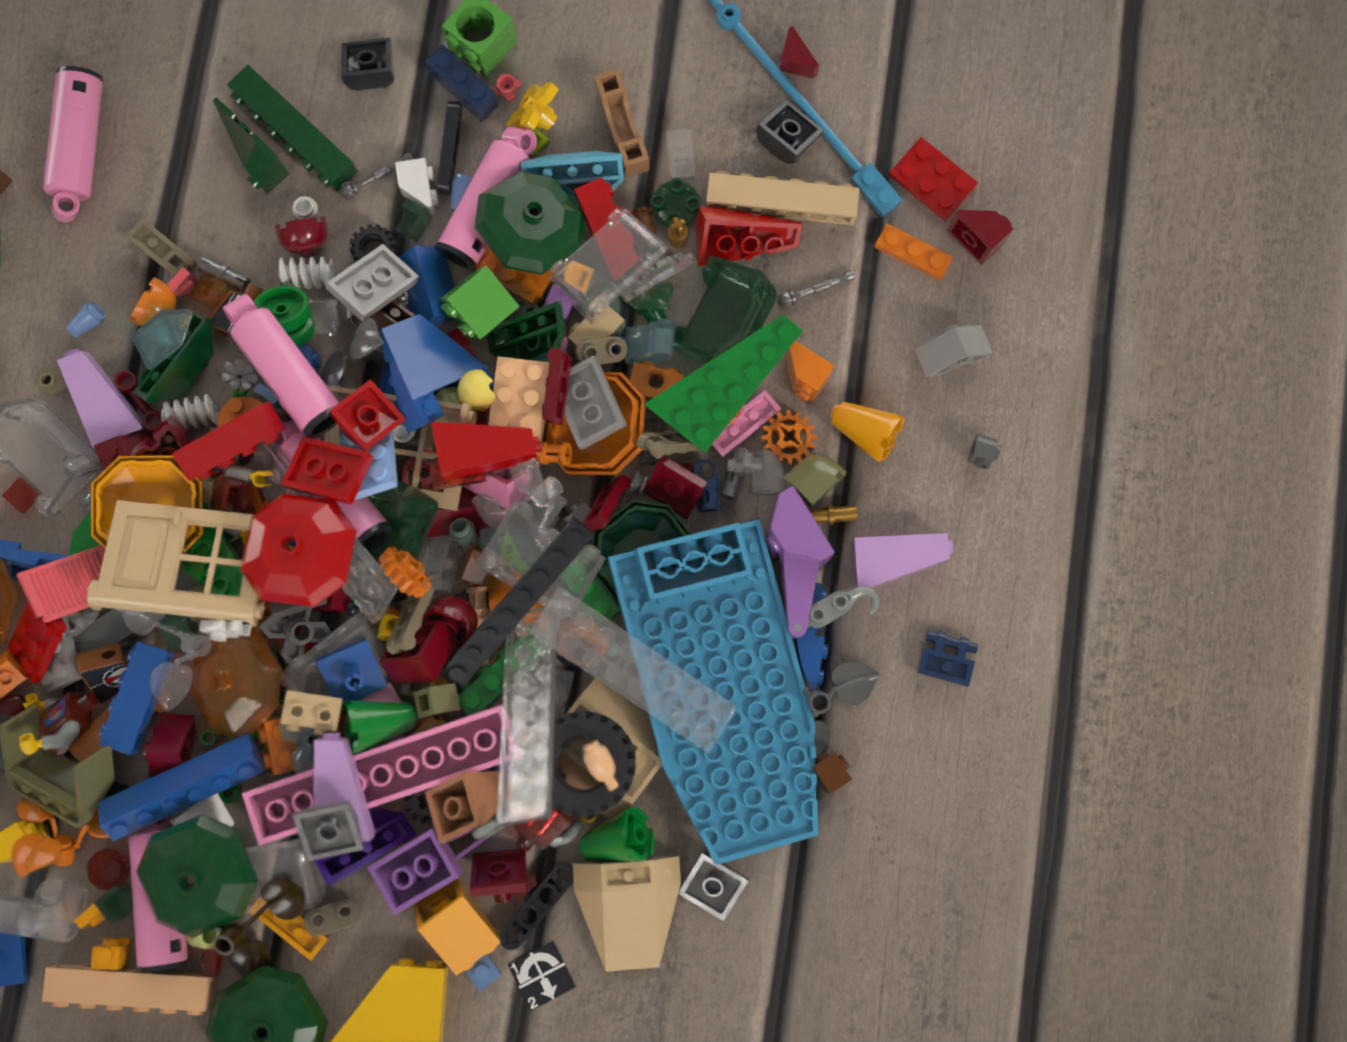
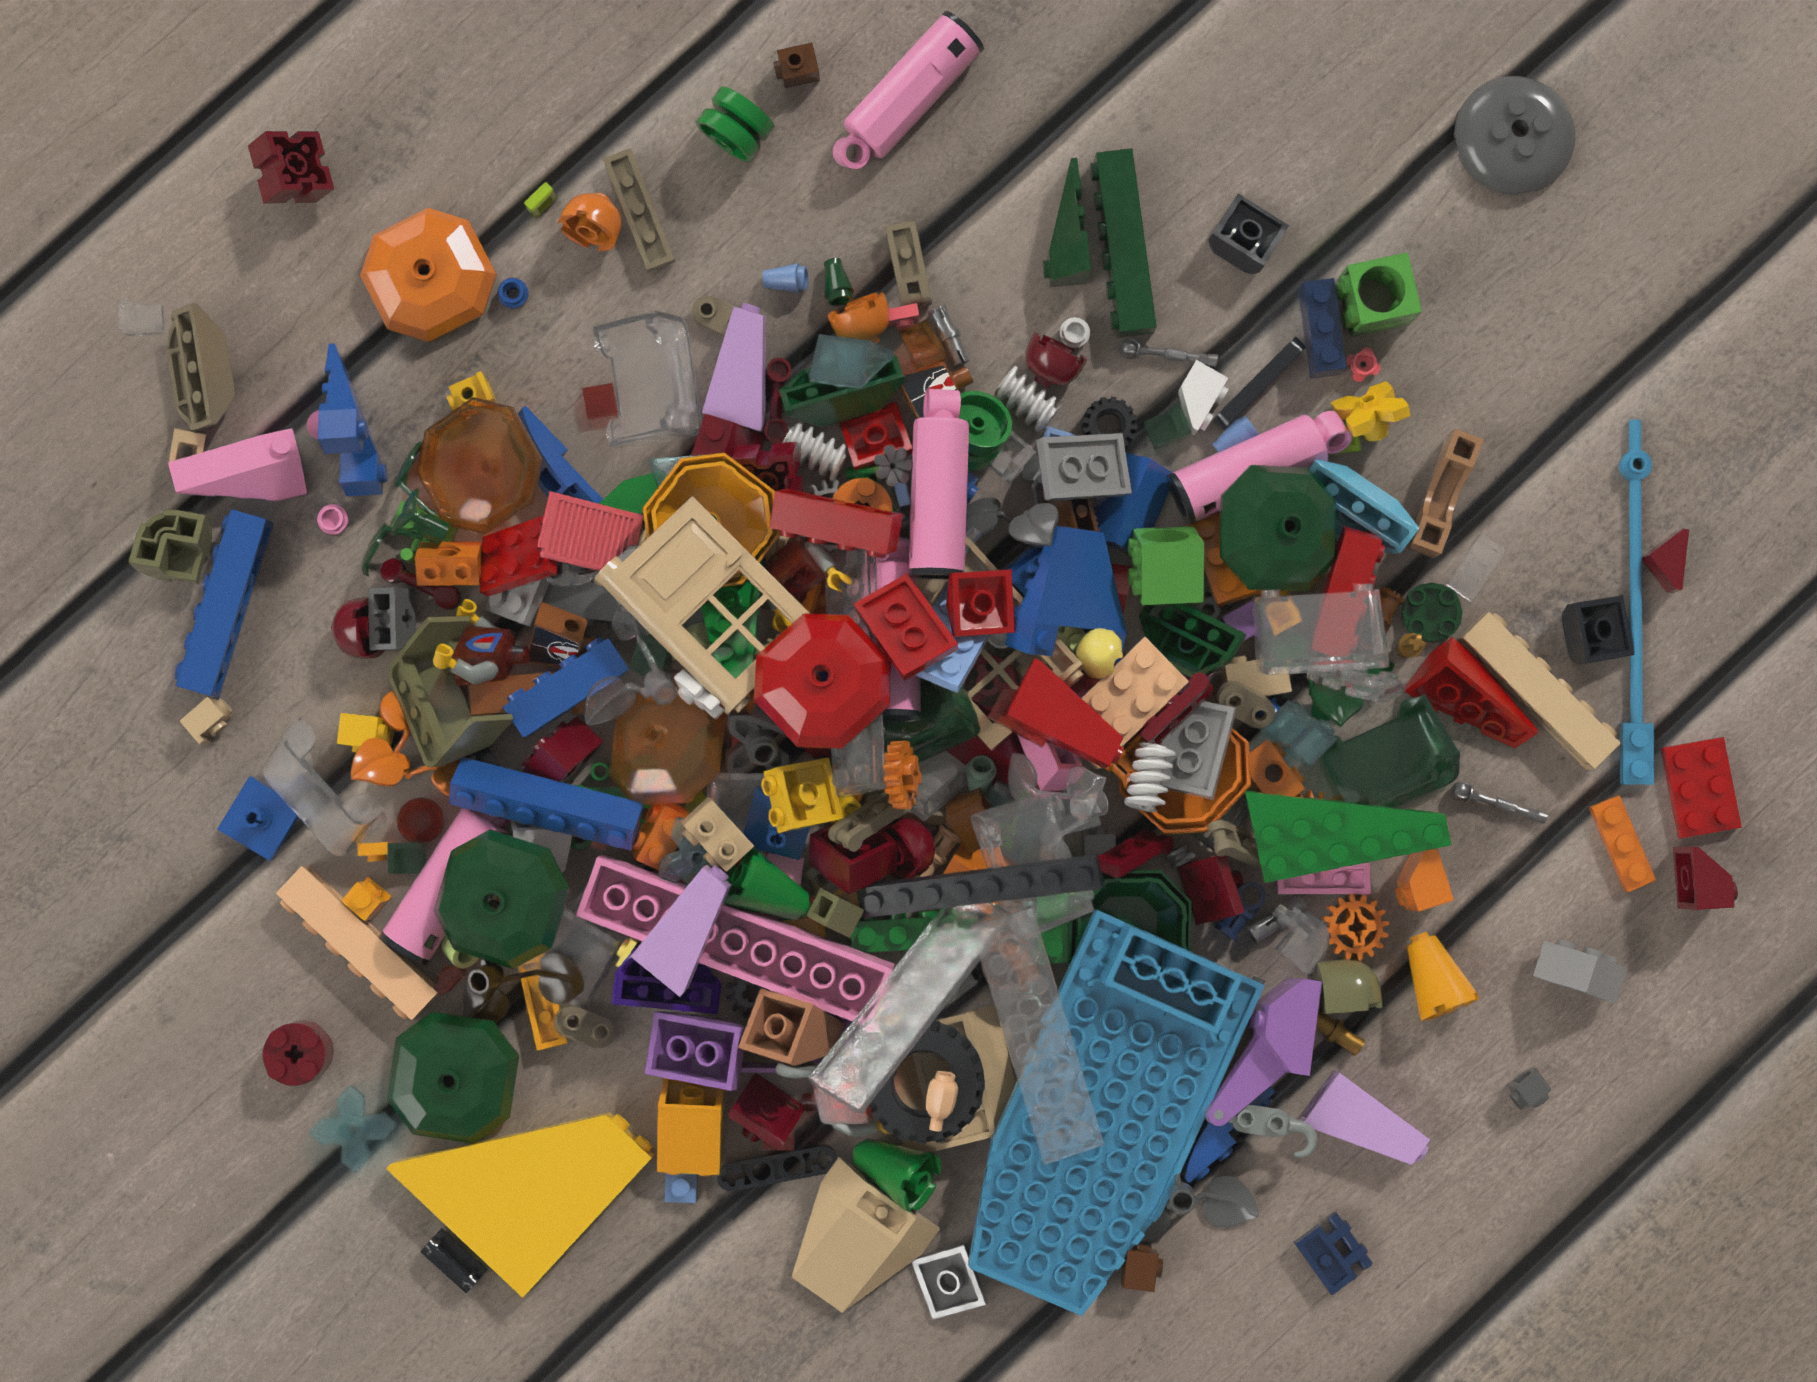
camera: 35 degrees right, 5 degrees up
(122, 297) = (837, 284): none -> dark green cone
(211, 376) = (872, 432): none -> red slope
(329, 830) = (653, 960): flat silver slope -> none
(348, 639) = (801, 795): none -> yellow plate
(541, 975) = (730, 1232): black sticker -> none
(571, 444) = (1148, 777): none -> white piece

